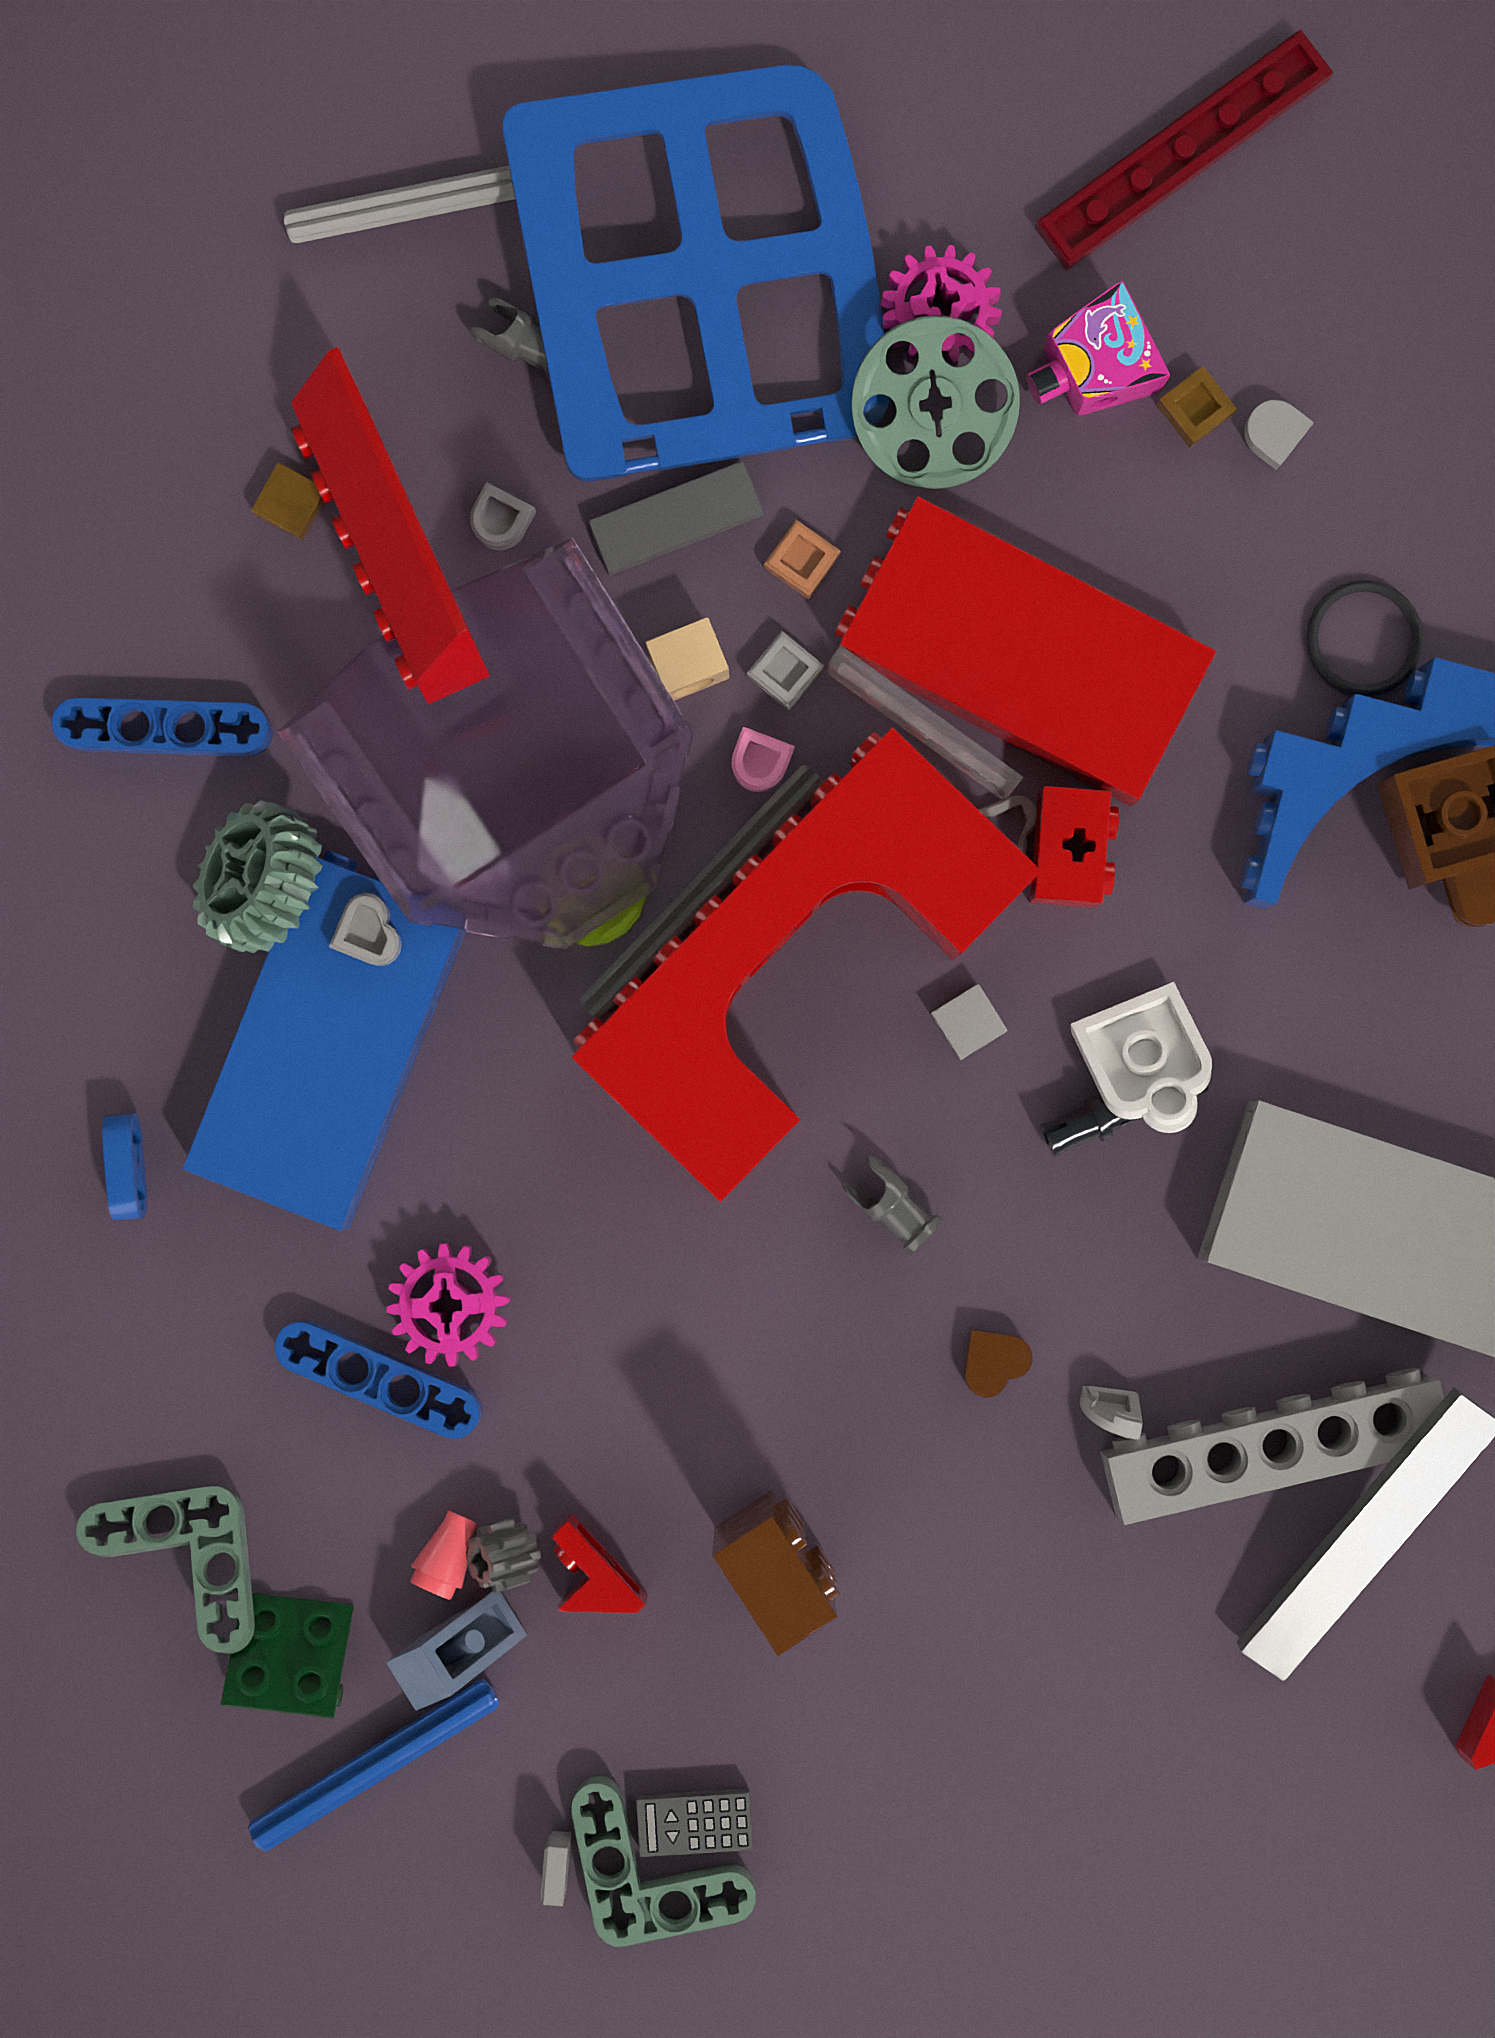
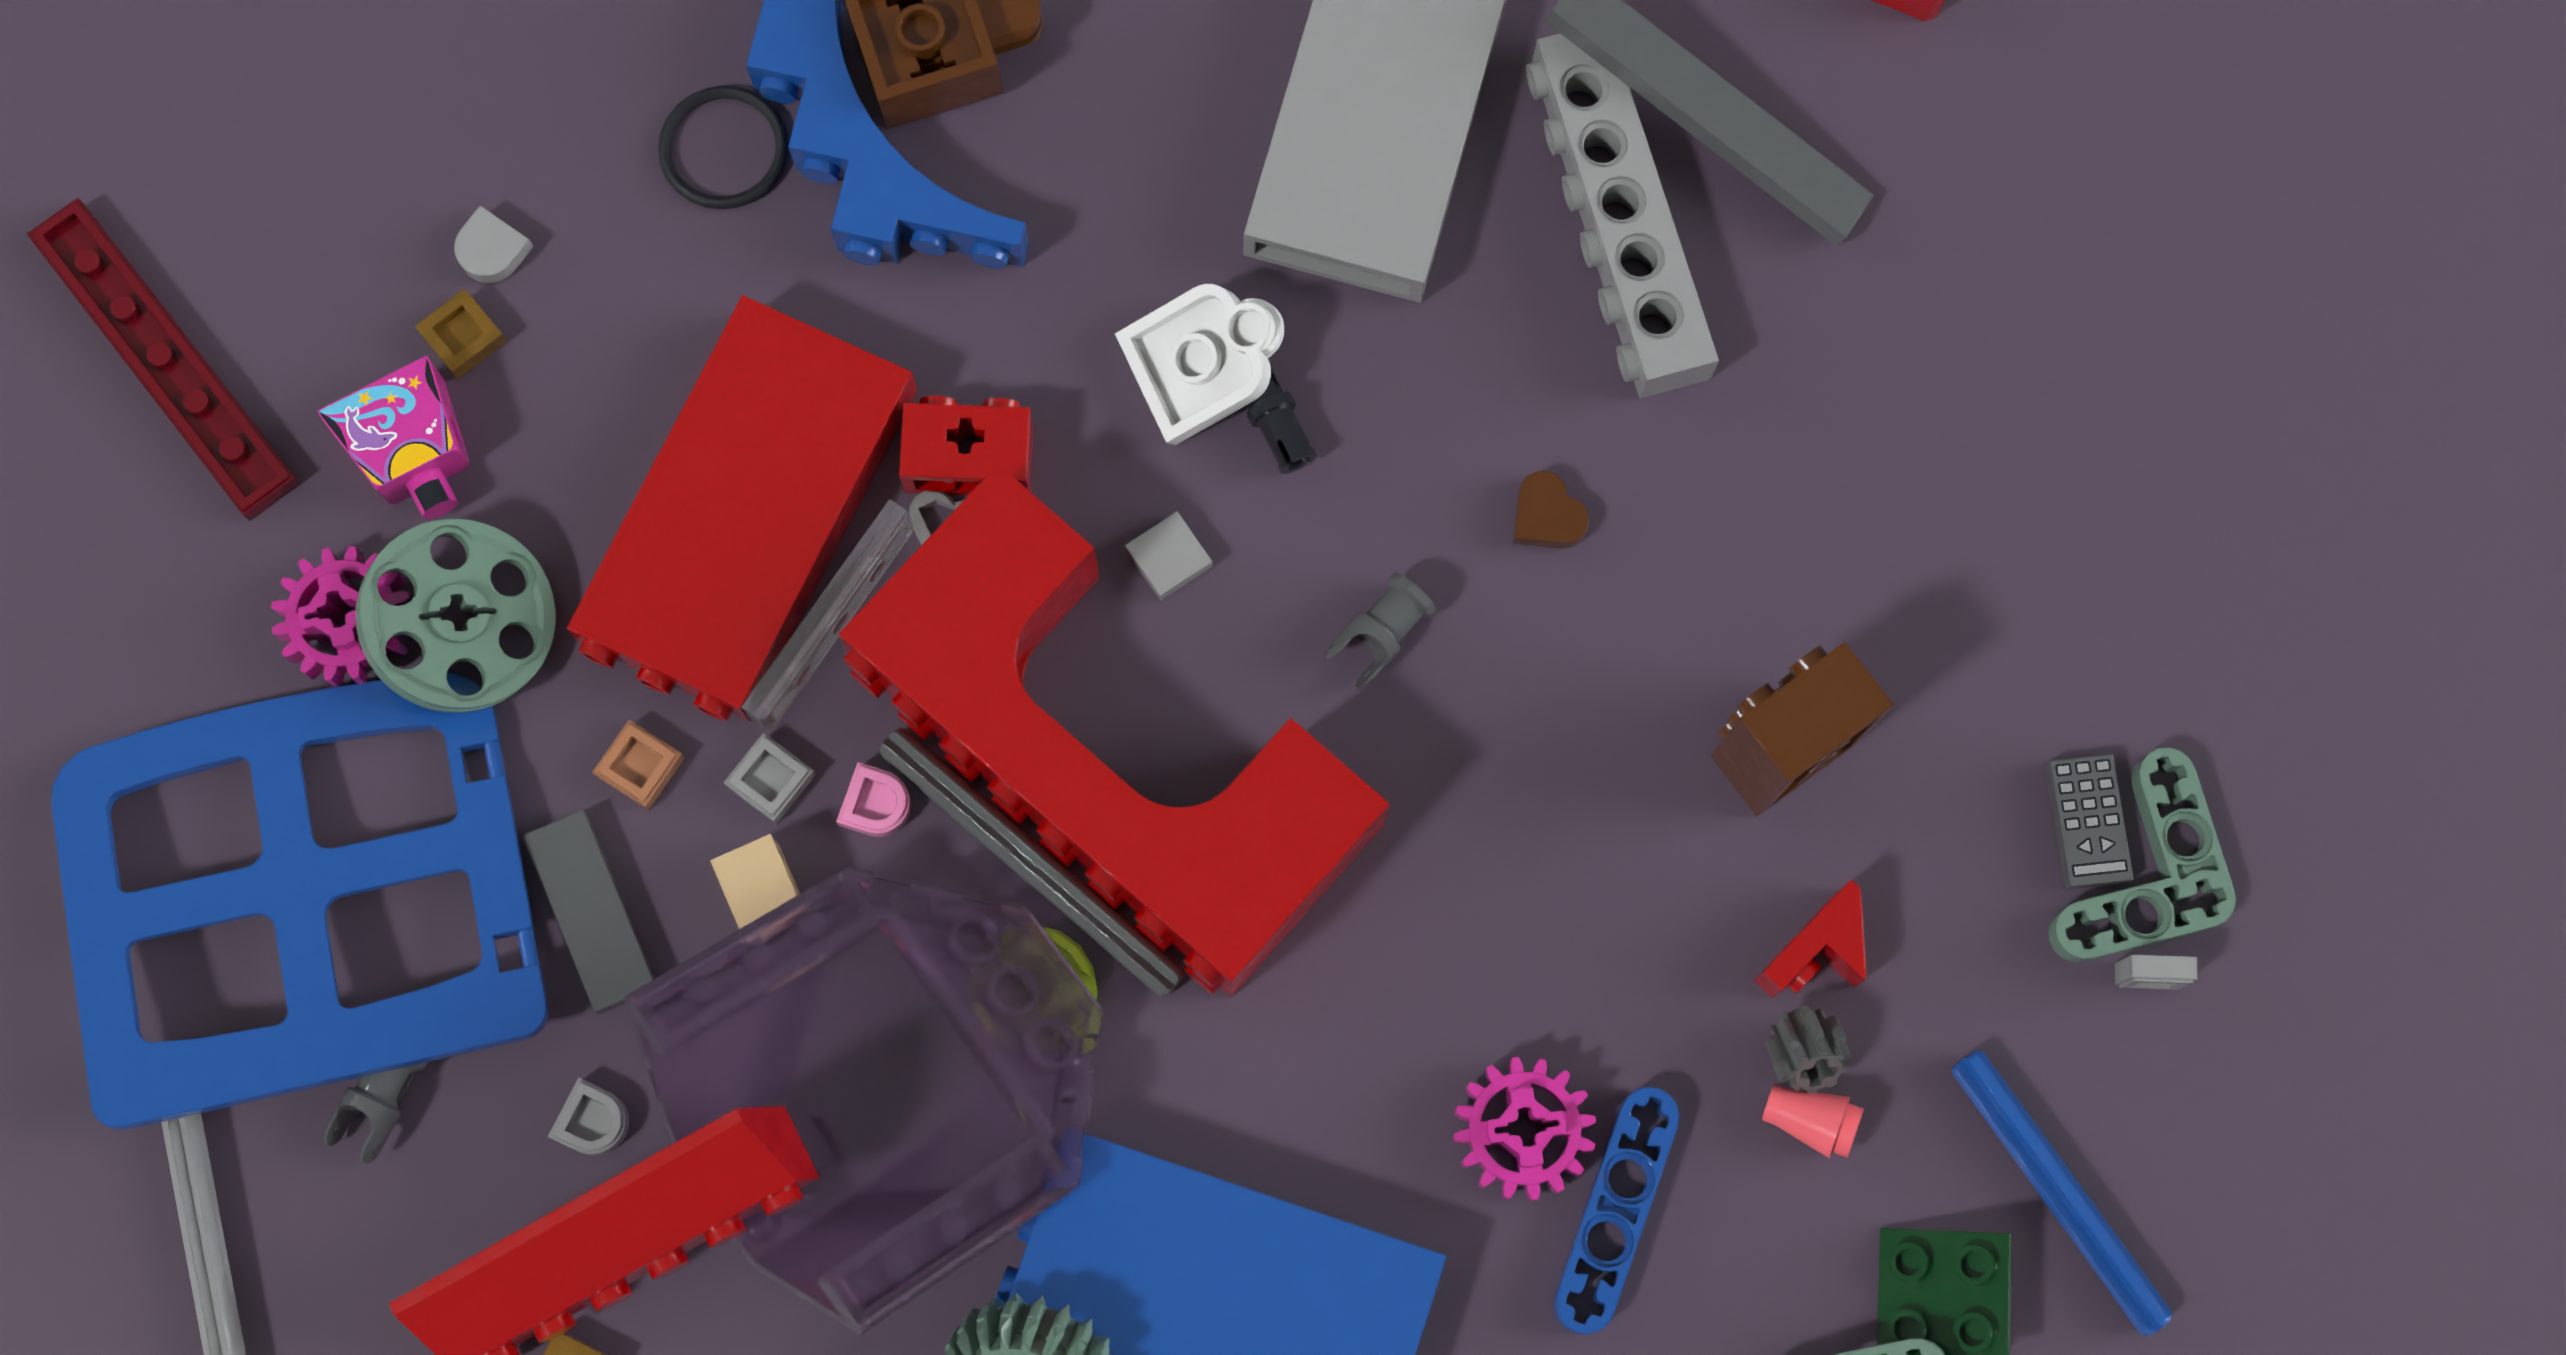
camera: 100 degrees left, 10 degrees down
(366, 931) = (1092, 1241): light grey tile -> none
(456, 1650) = (1922, 1100): sand blue slope -> none
(1113, 1410) = (1594, 381): light grey tile -> none

